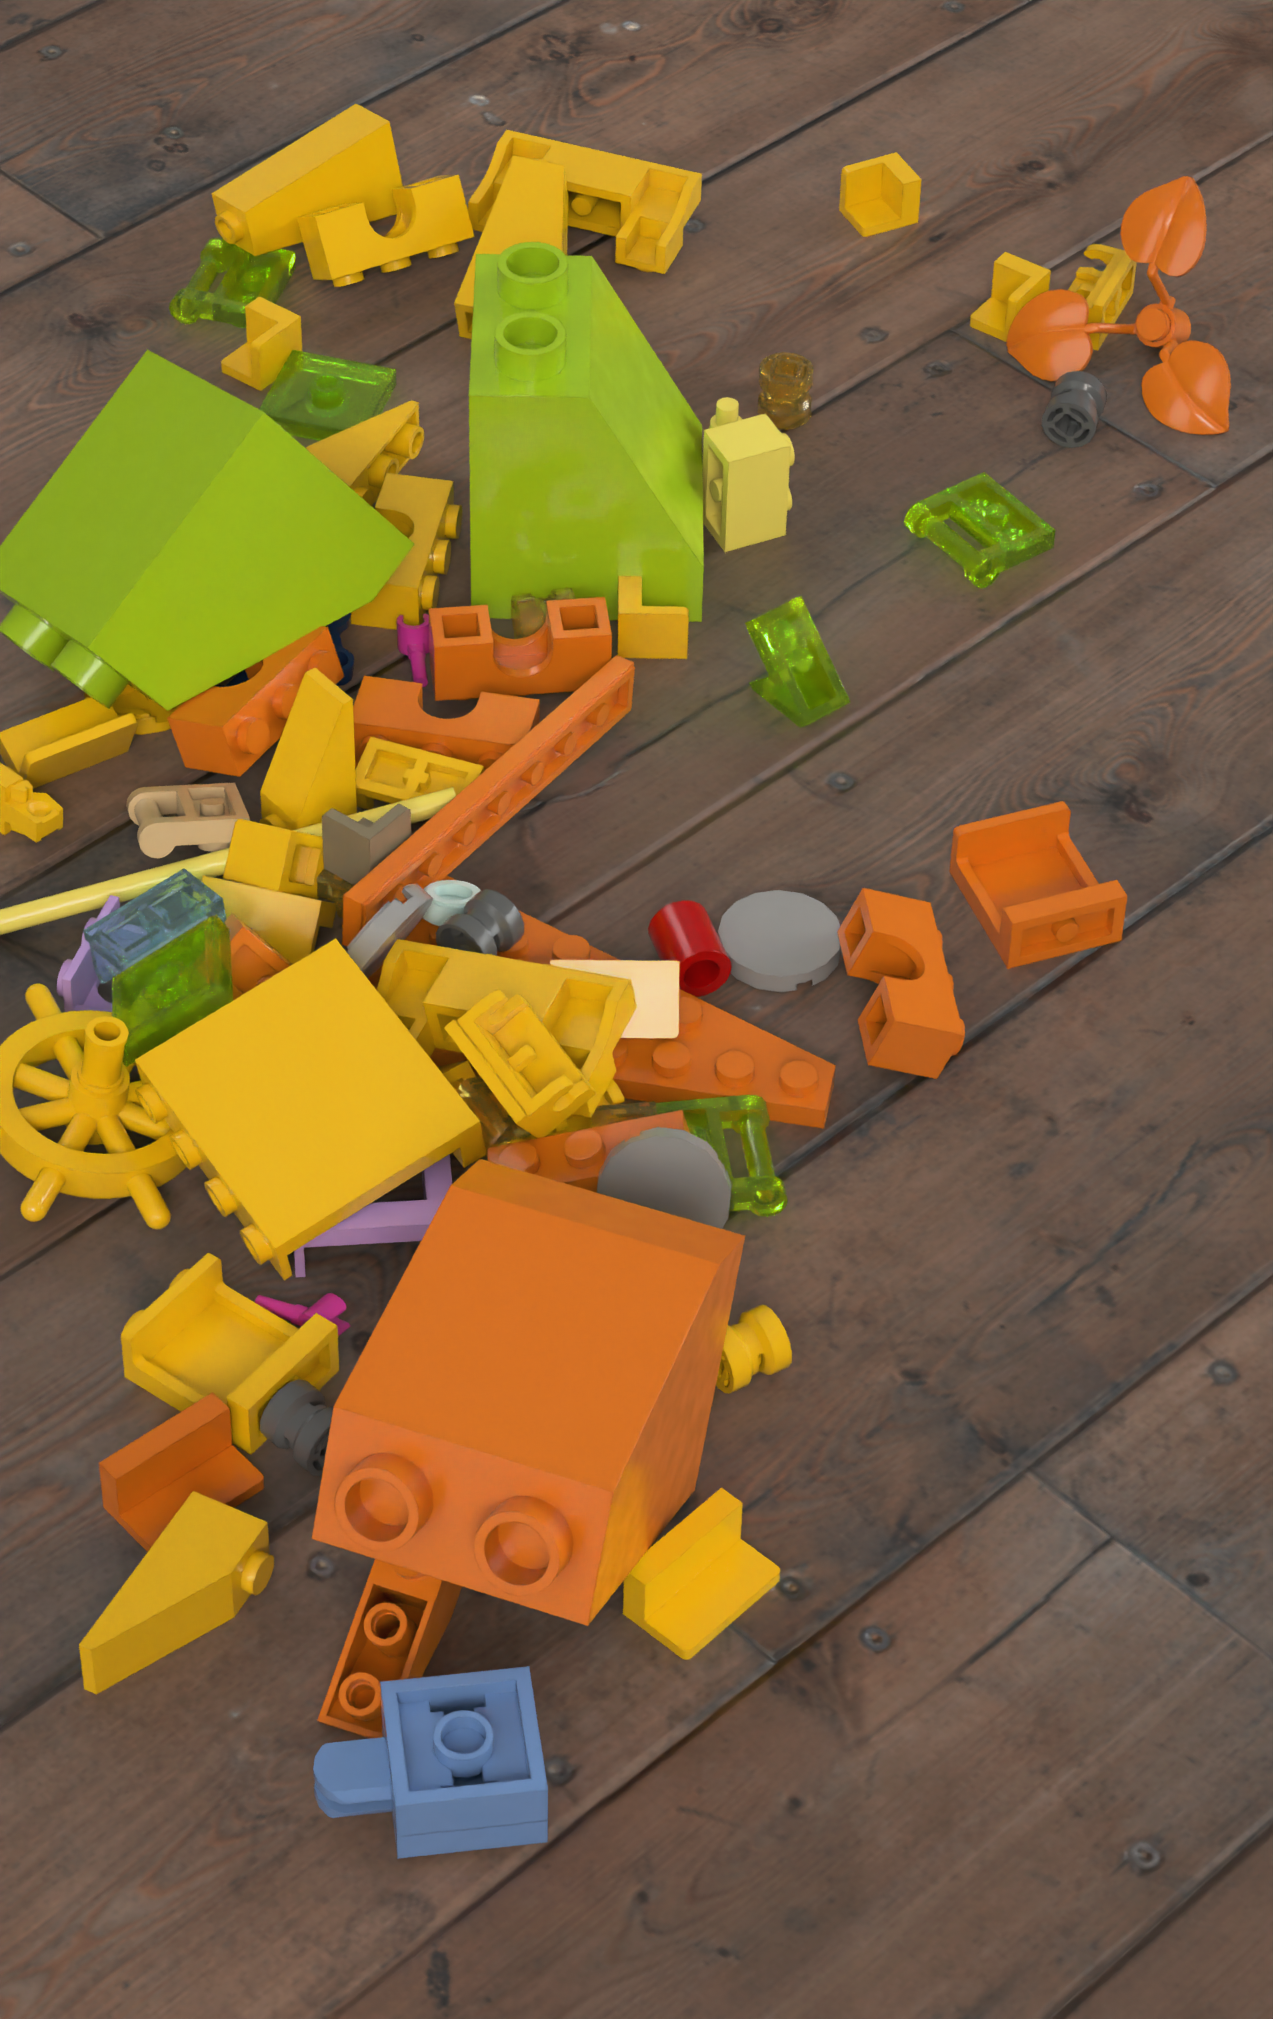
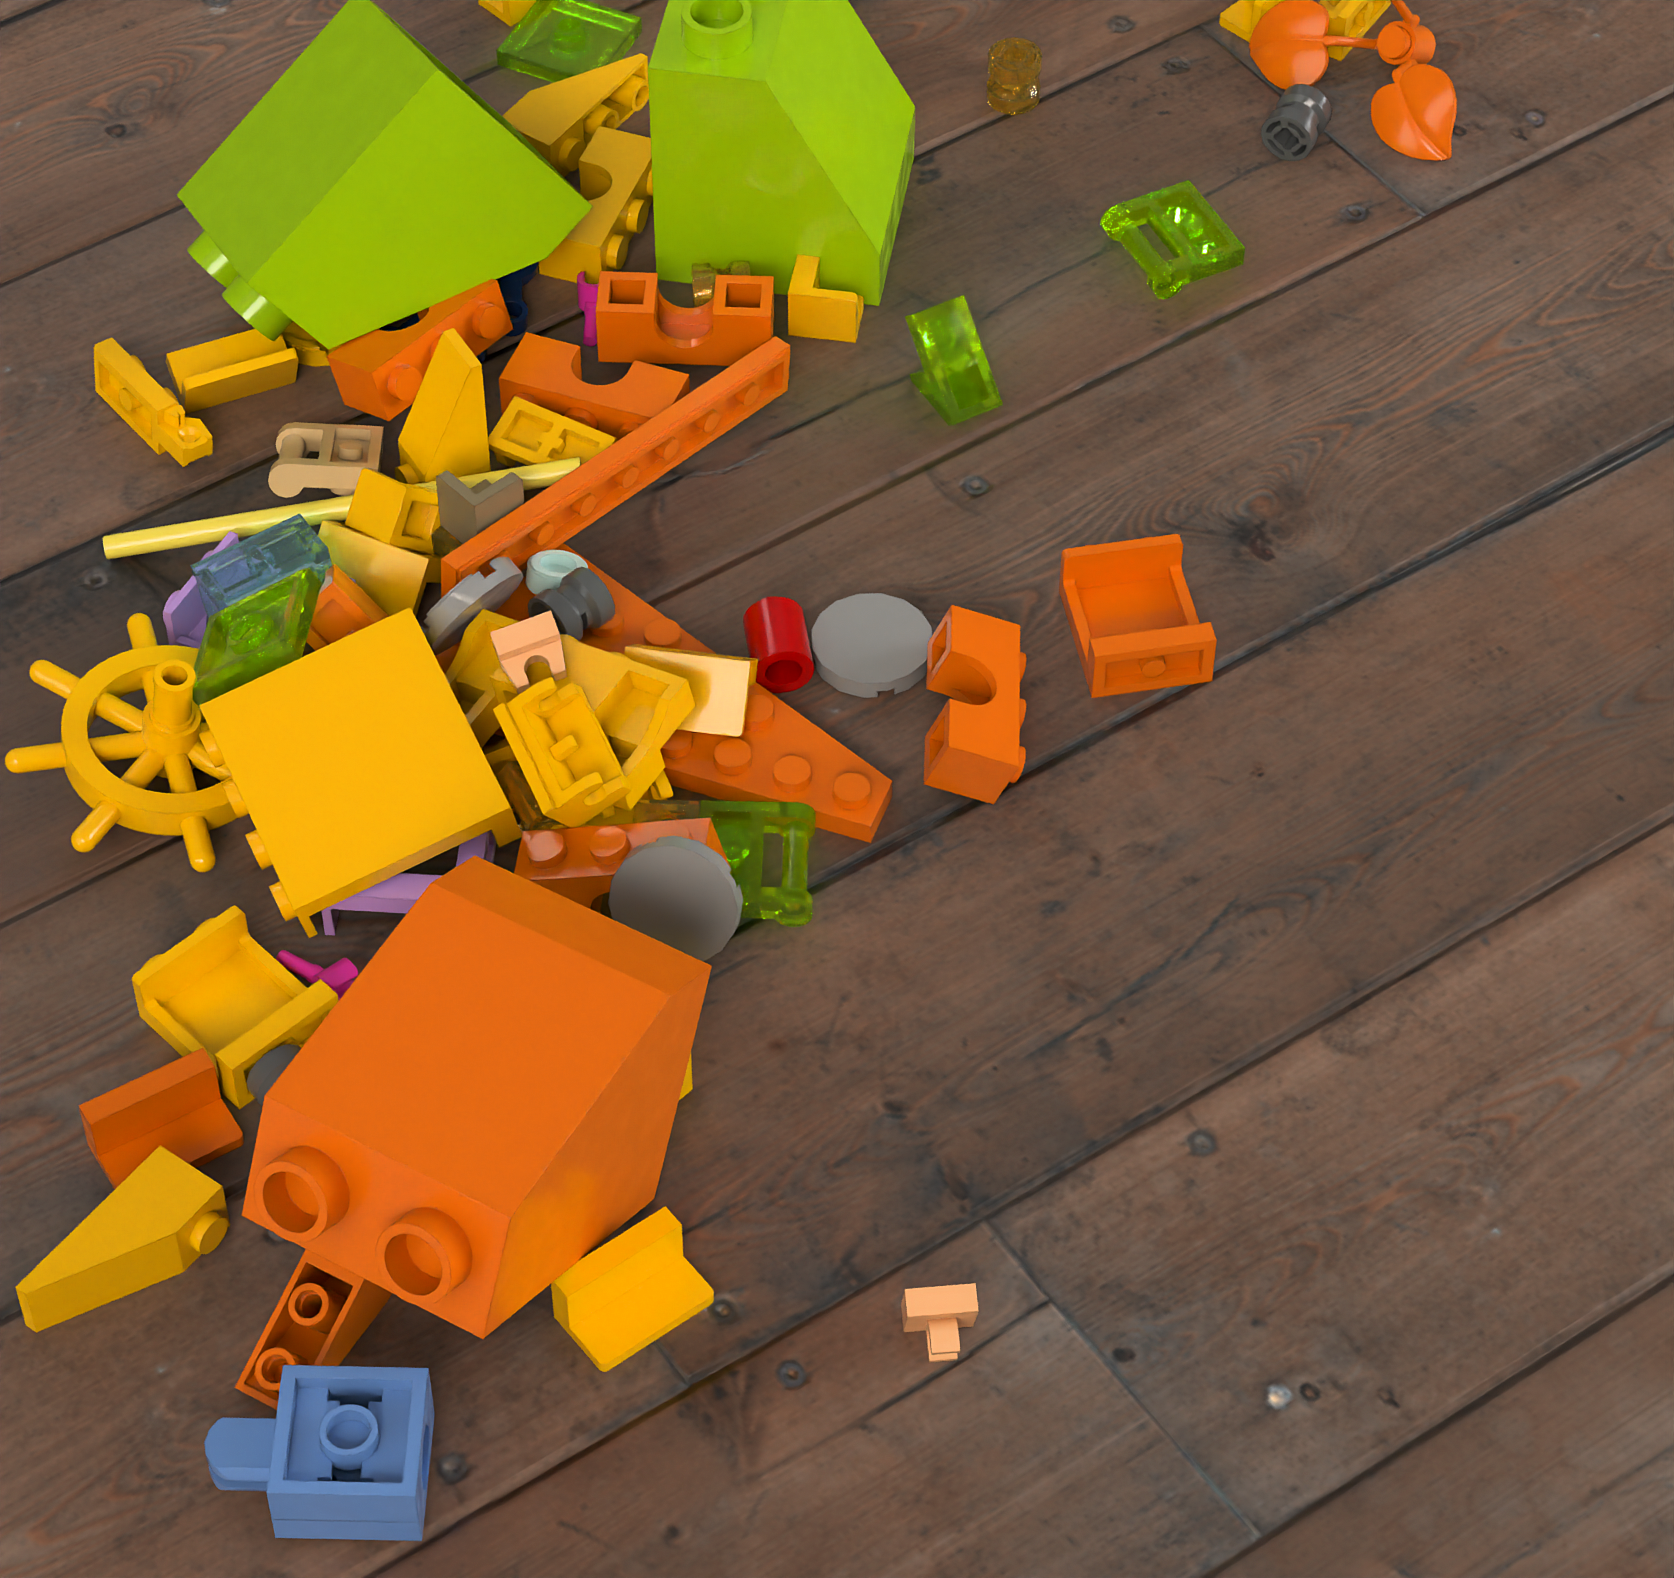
camera: 10 degrees right, 5 degrees up
(462, 961) = (526, 643): none -> light nougat tile
(745, 478) = (946, 164): light yellow brick -> none
(752, 1347) = (731, 1063): yellow wheel -> none
(1016, 1561) = (940, 1314): none -> light nougat tile

